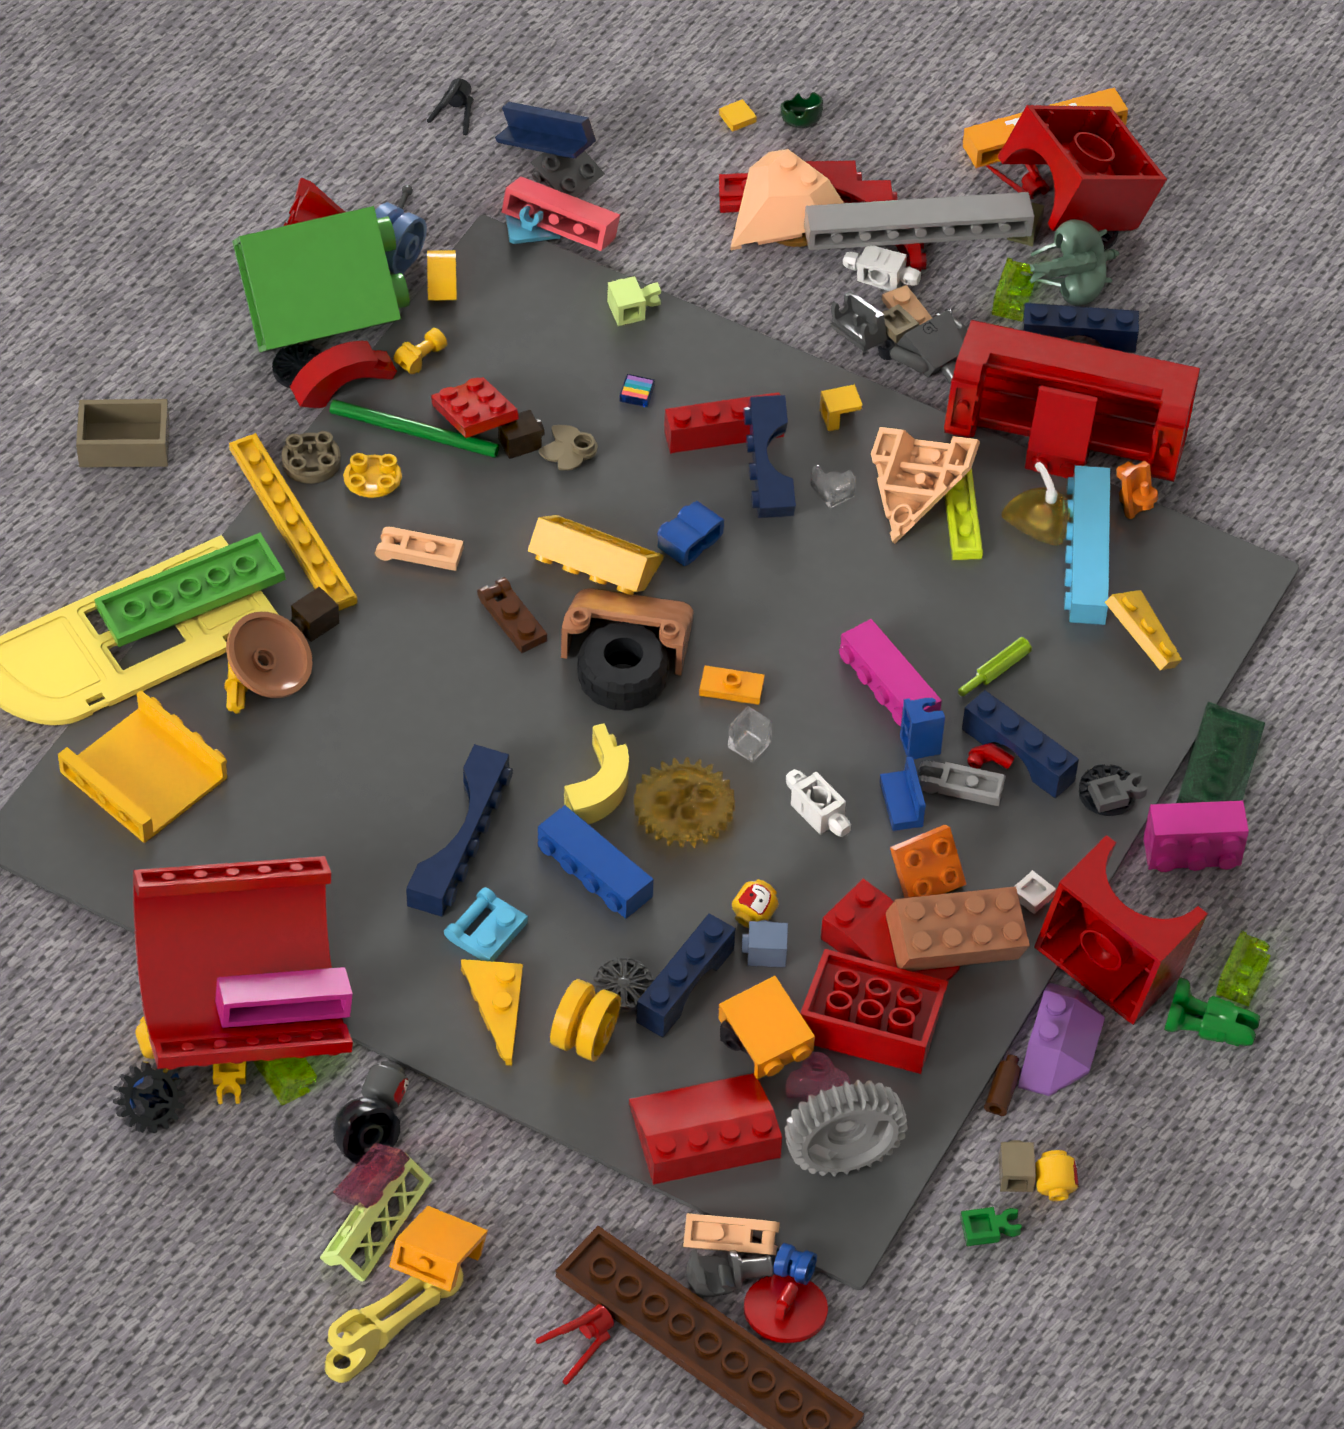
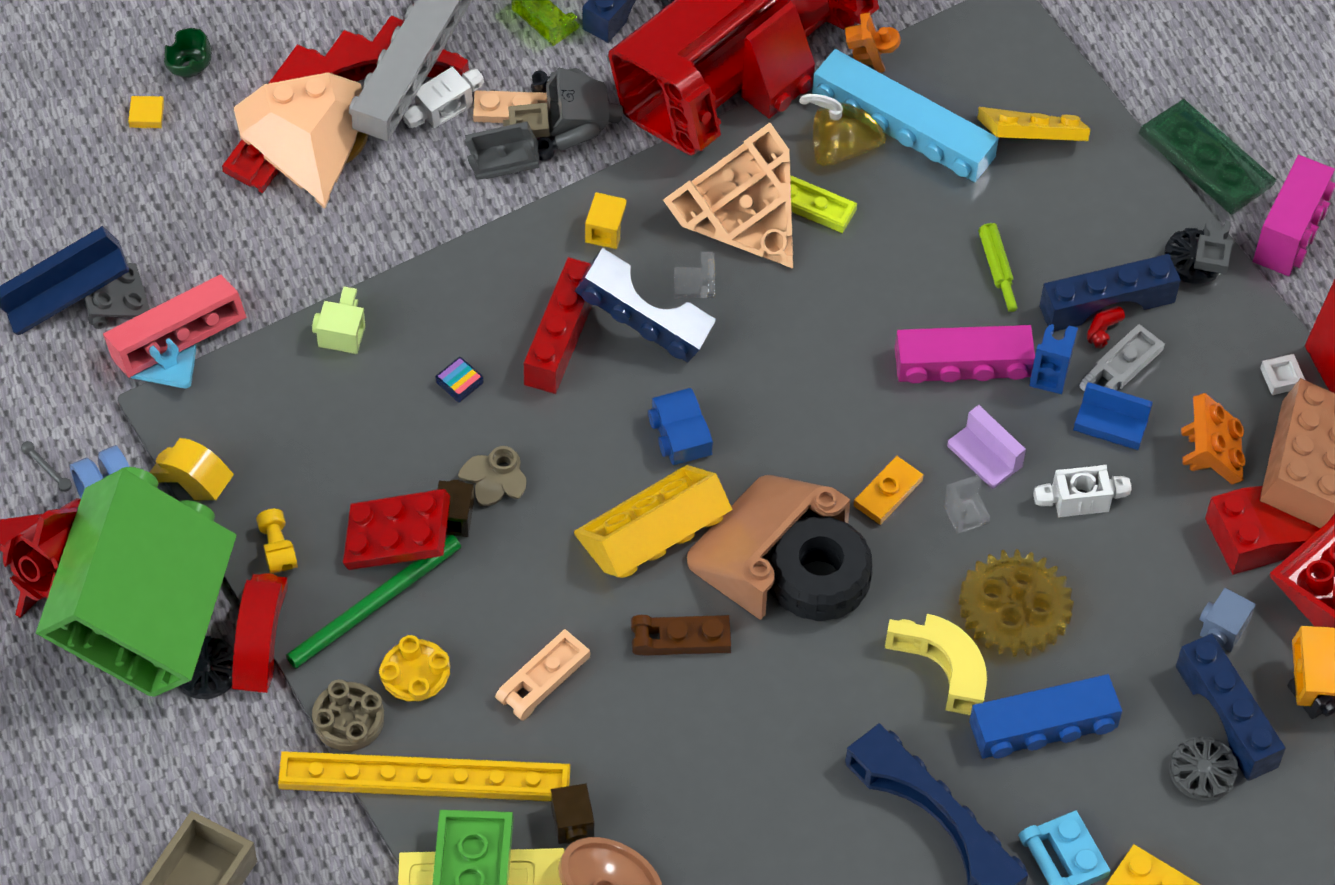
camera: 60 degrees left, 5 degrees up
(585, 1020) = (1251, 819): yellow wheel -> none
(755, 902) = (1175, 605): head -> none
(814, 730) = (987, 448): none -> lavender panel

